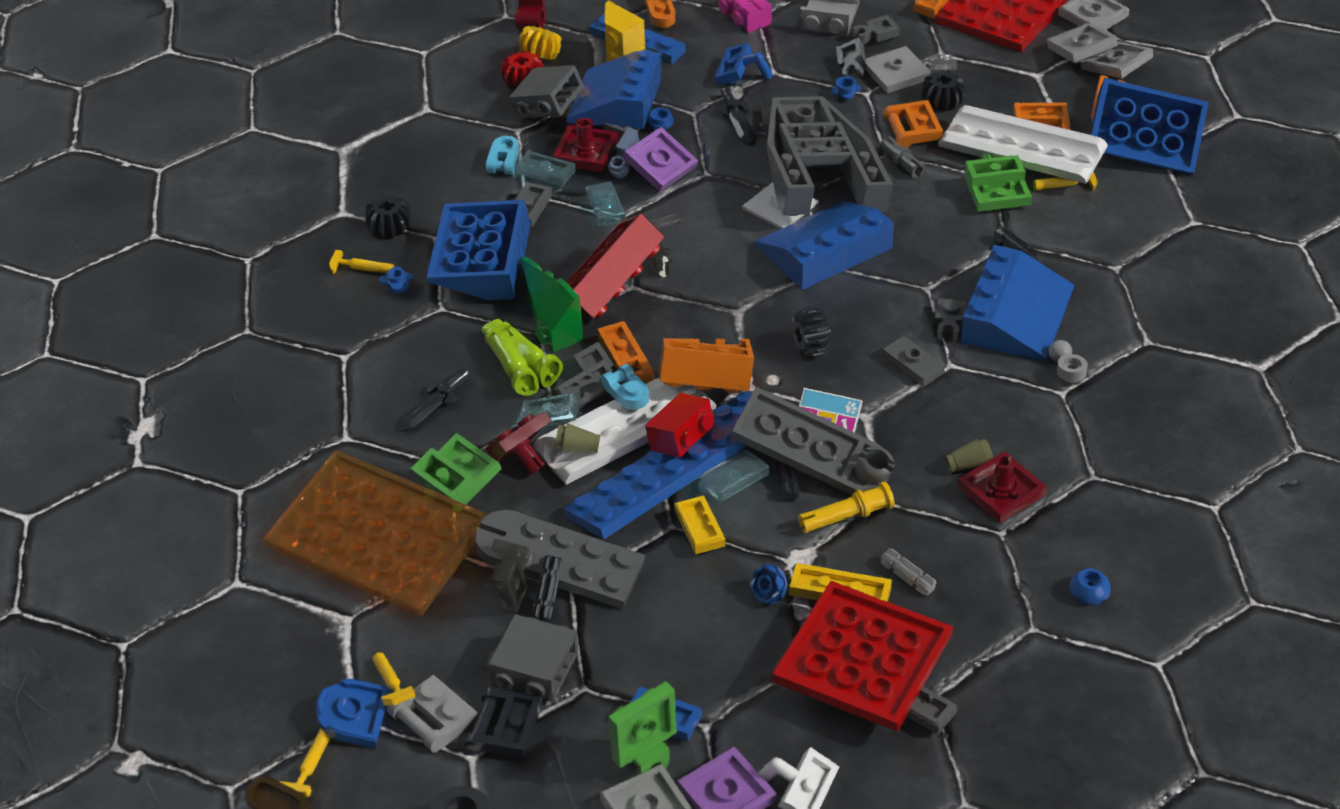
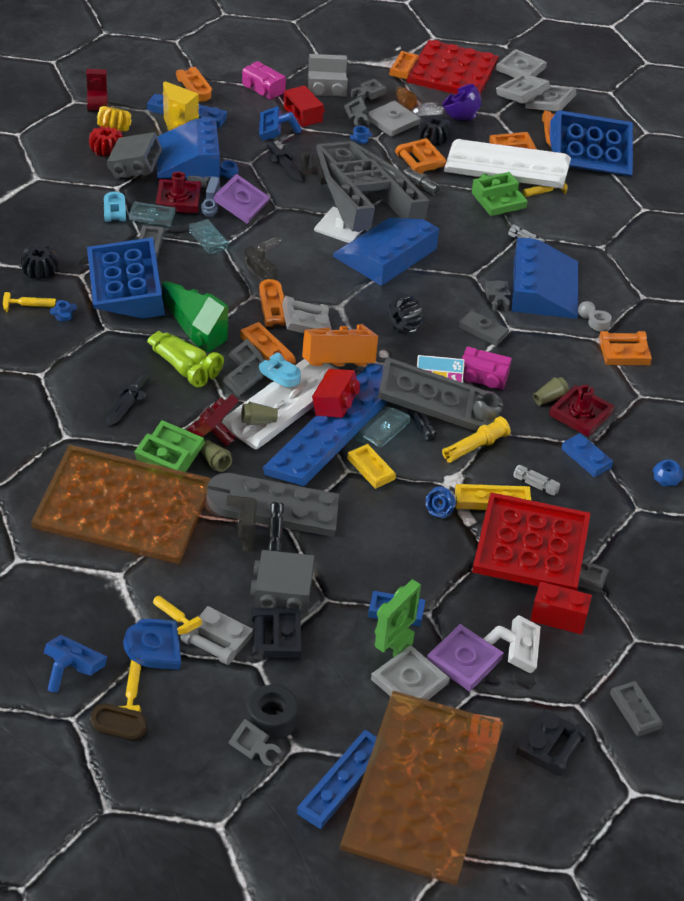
camera: 20 degrees left, 0 degrees up
(254, 710) = (73, 654): none -> blue plate
(512, 487) = (216, 456): none -> olive cone
(559, 408) = (238, 388): clear light blue plate -> none
(613, 263) = (240, 276): slope -> none
(652, 298) = (271, 301): none -> orange plate
(681, 326) = (298, 320): none -> light grey plate
(784, 44) = (303, 105): none -> red brick
(873, 746) = (560, 608): none -> red brick
(892, 415) = (486, 368): none -> dark pink brick
(922, 45) = (406, 98): none -> clear orange cone
(989, 547) = (587, 455): none -> blue plate
(992, 58) = (463, 104): none -> dark purple cylinder
(1093, 416) = (625, 352): none -> orange plate

